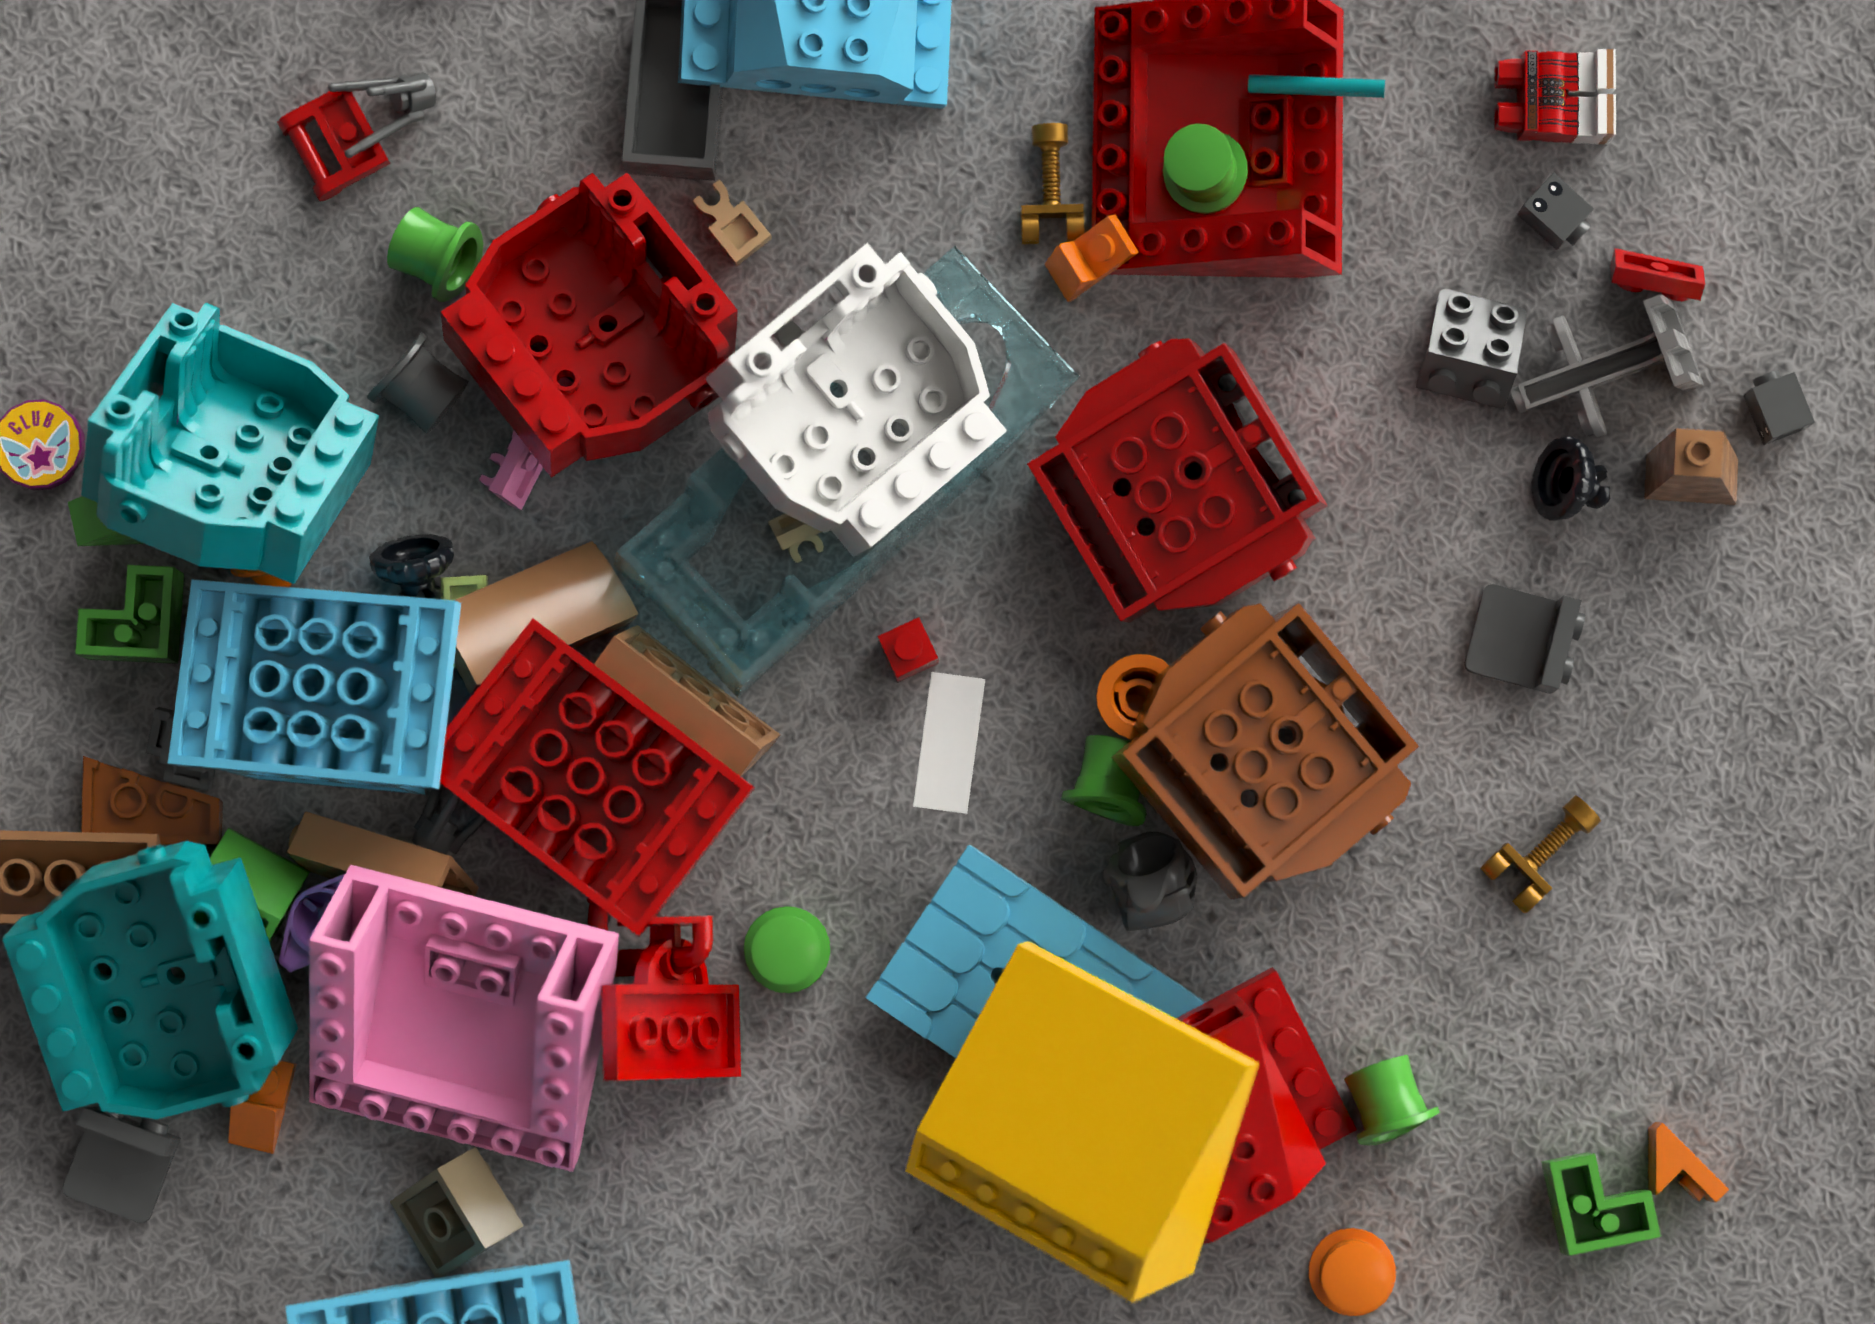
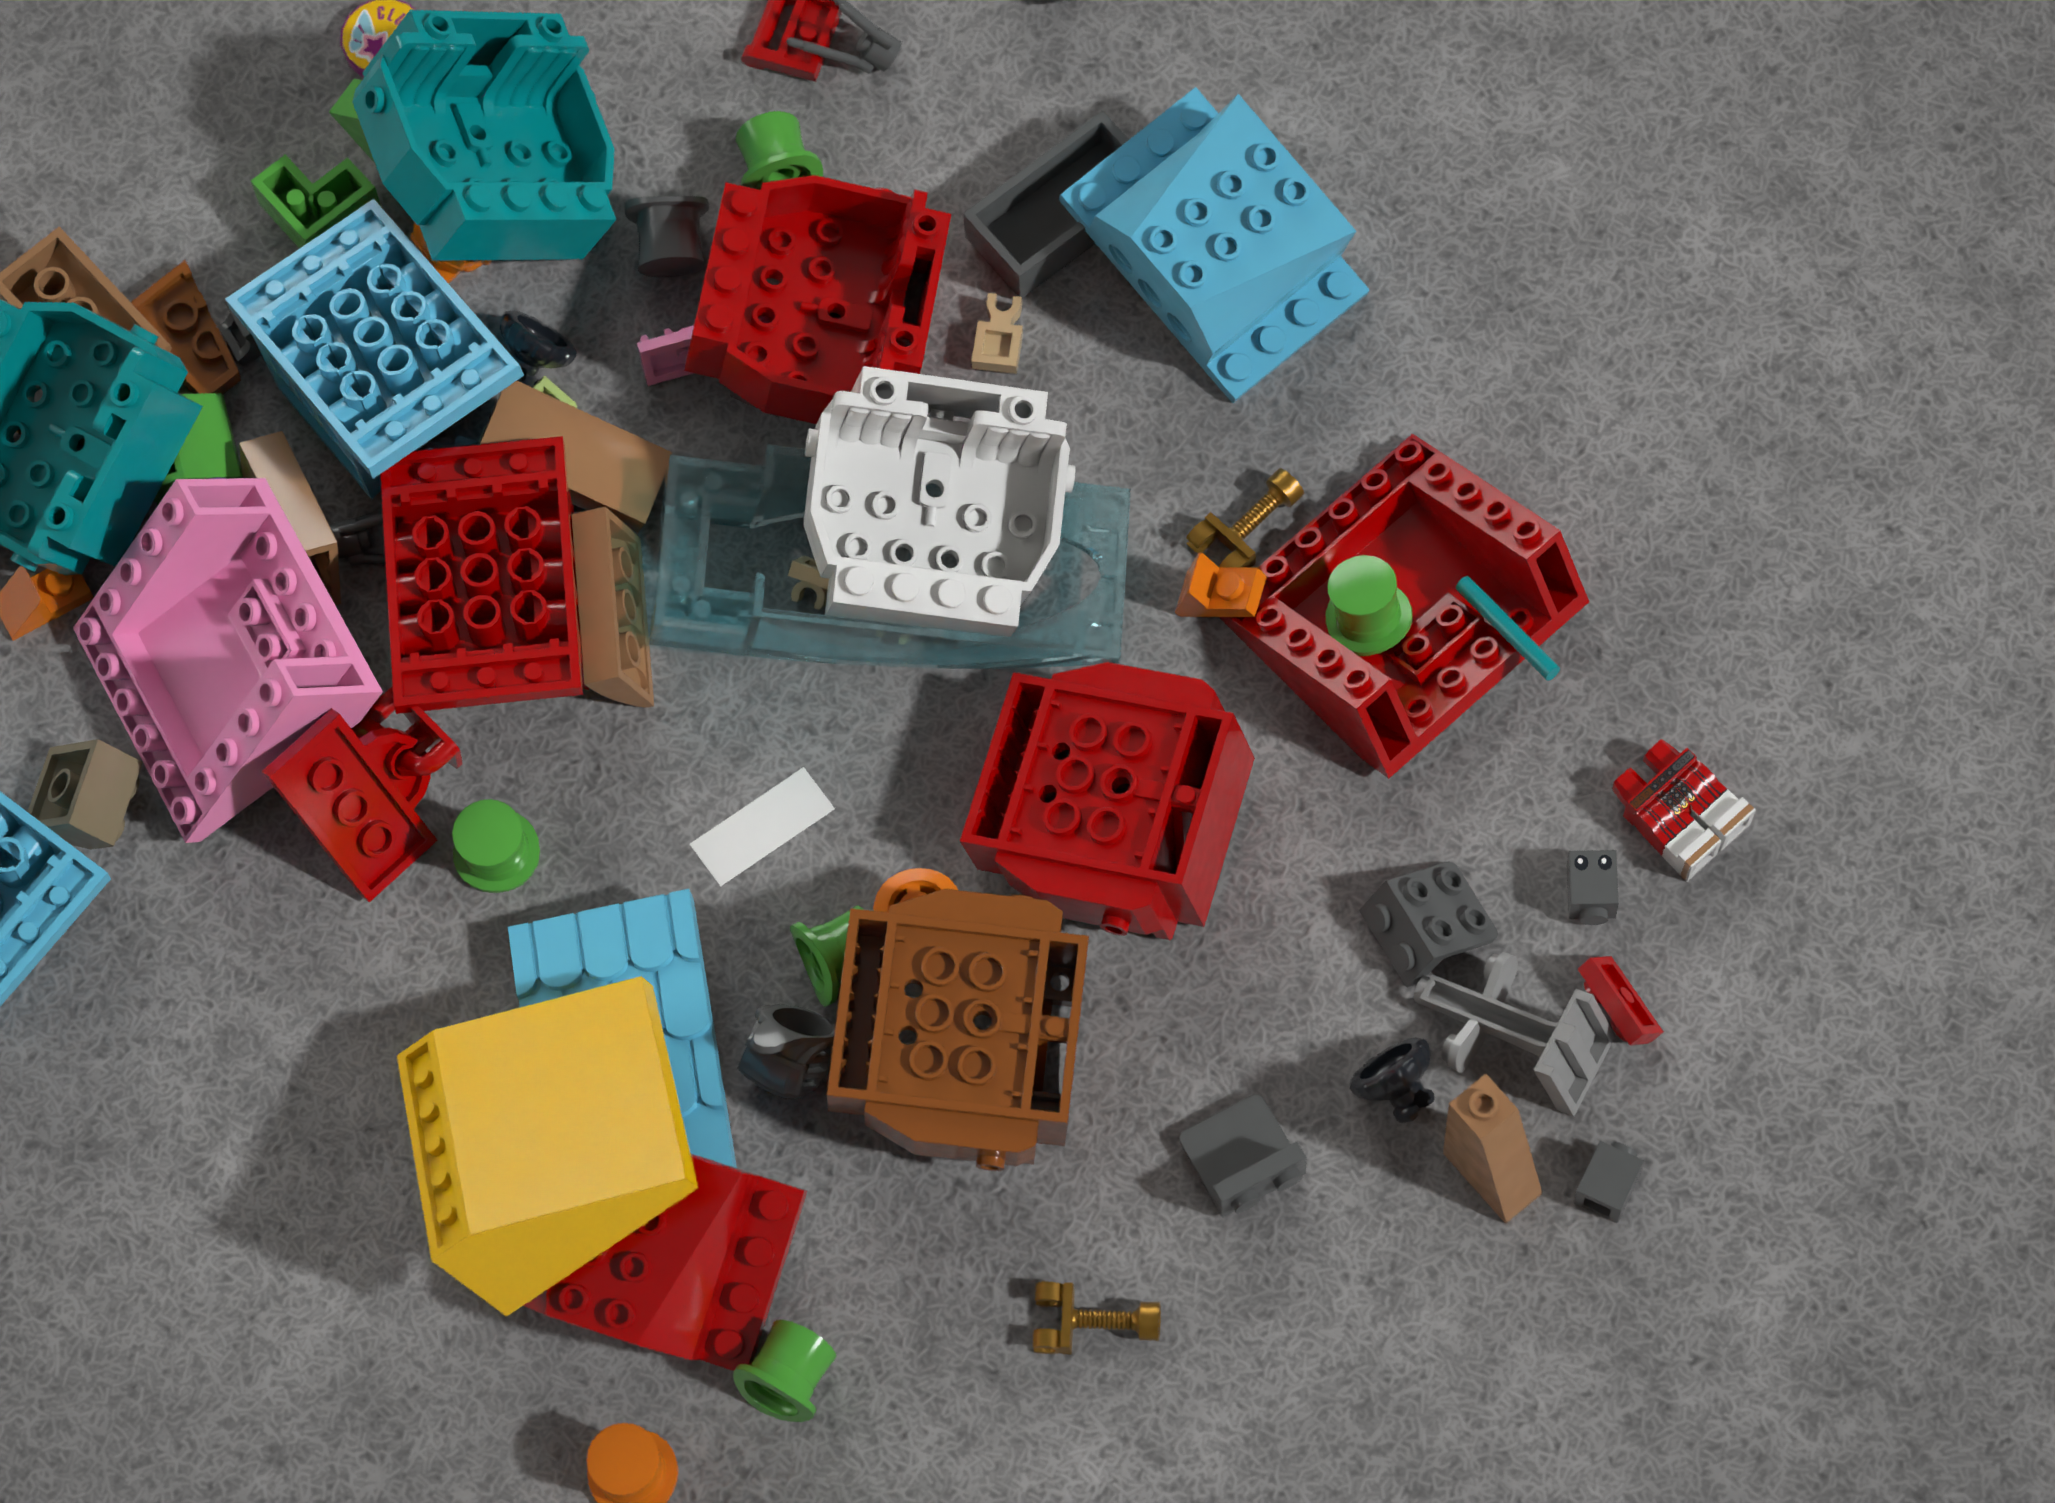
camera: 50 degrees right, 15 degrees down
(908, 649) = (800, 729): red brick -> none

